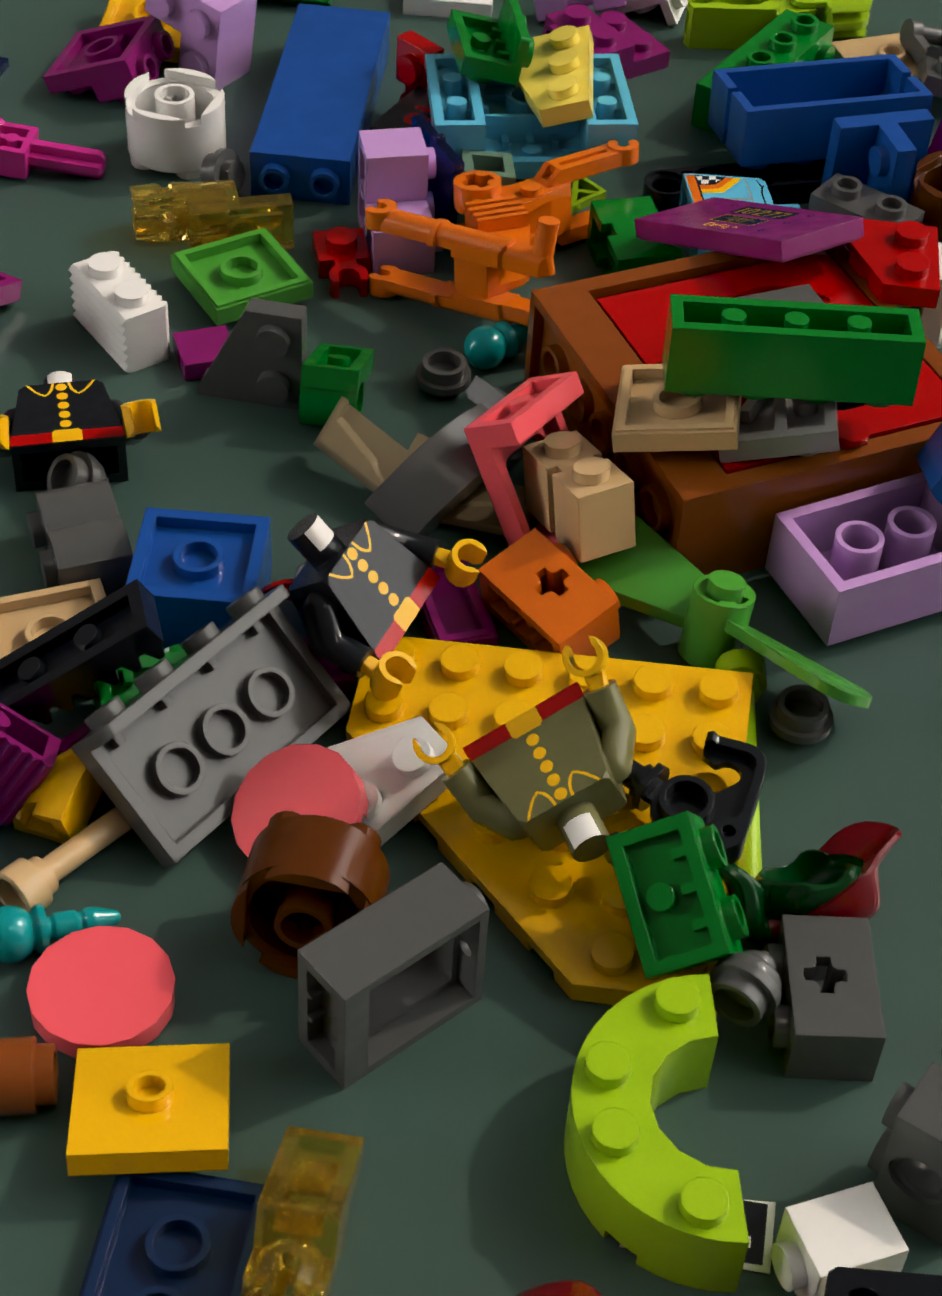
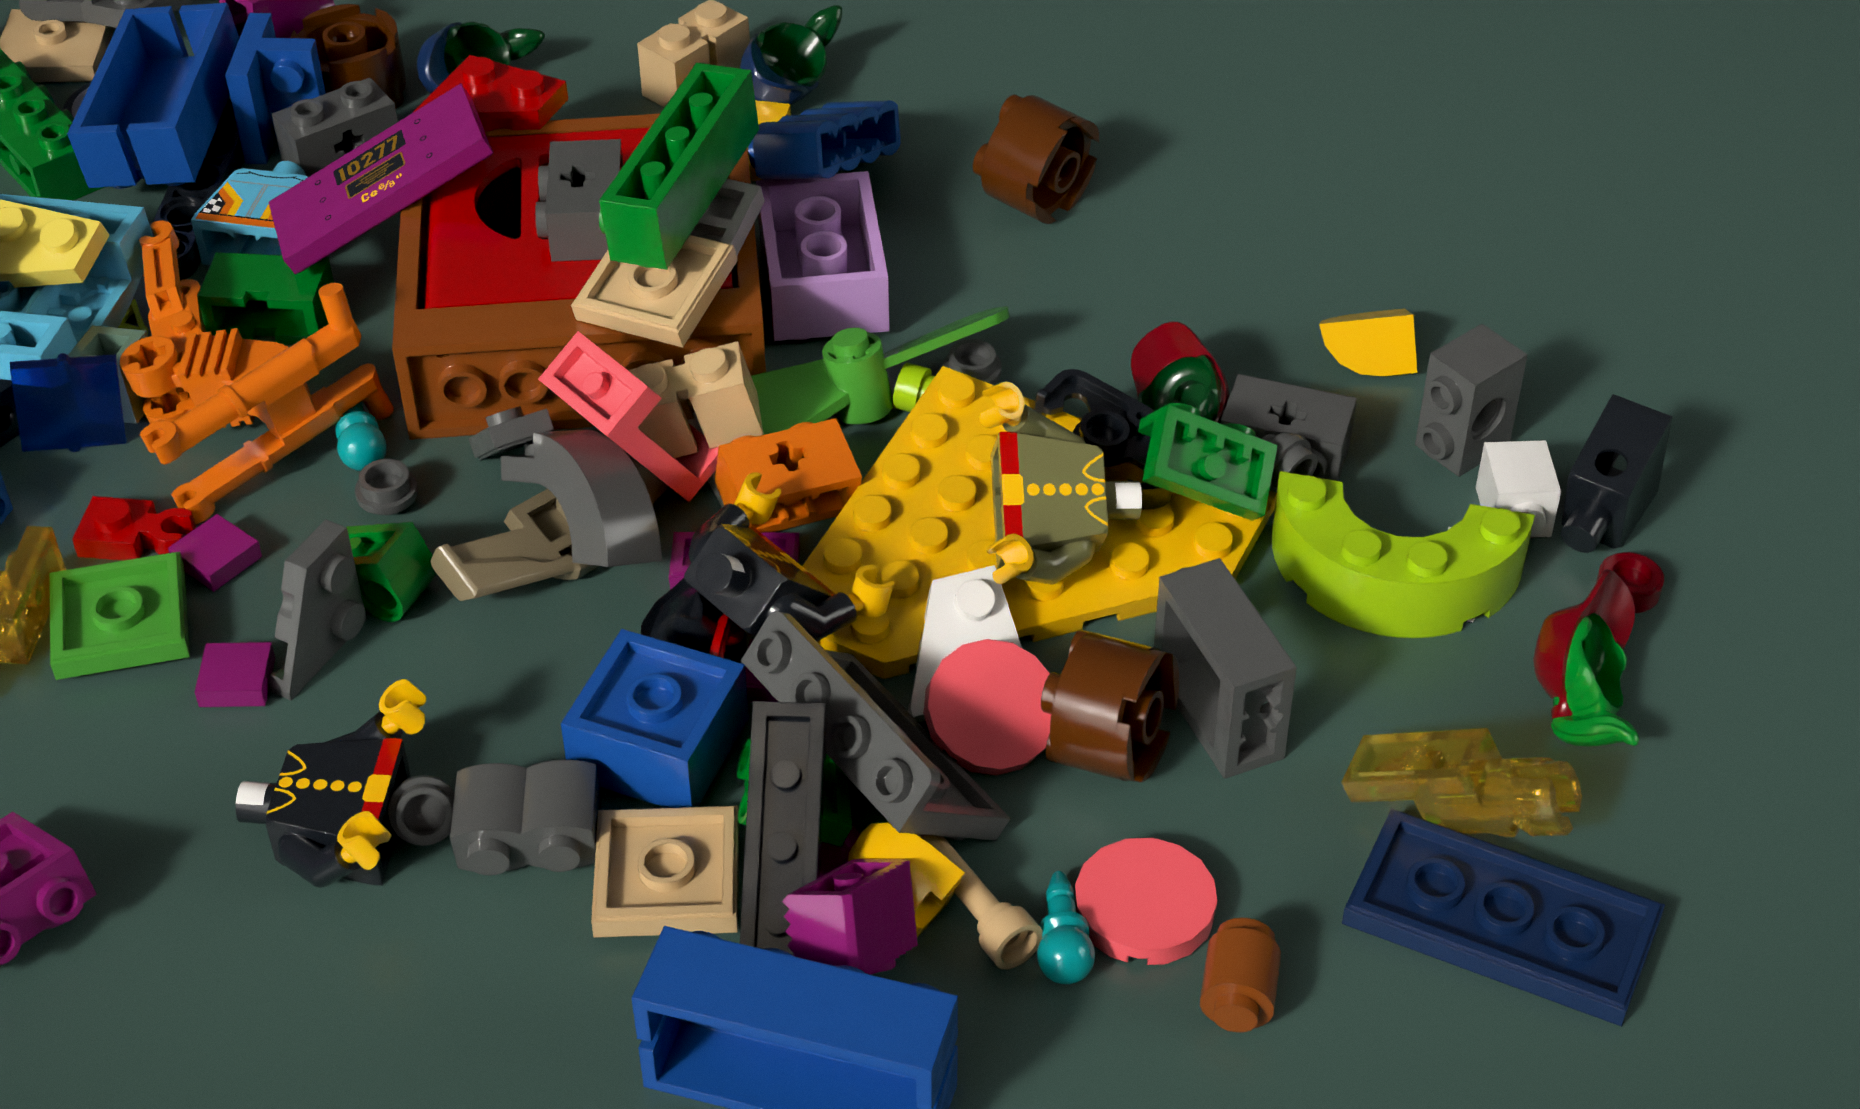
camera: 70 degrees left, 0 degrees up
(120, 311) = (139, 722): white brick -> none
(150, 1110) = (1300, 873): yellow plate -> none
(336, 307) = (216, 552): none -> magenta tile
(397, 168) = (84, 450): lavender brick -> none

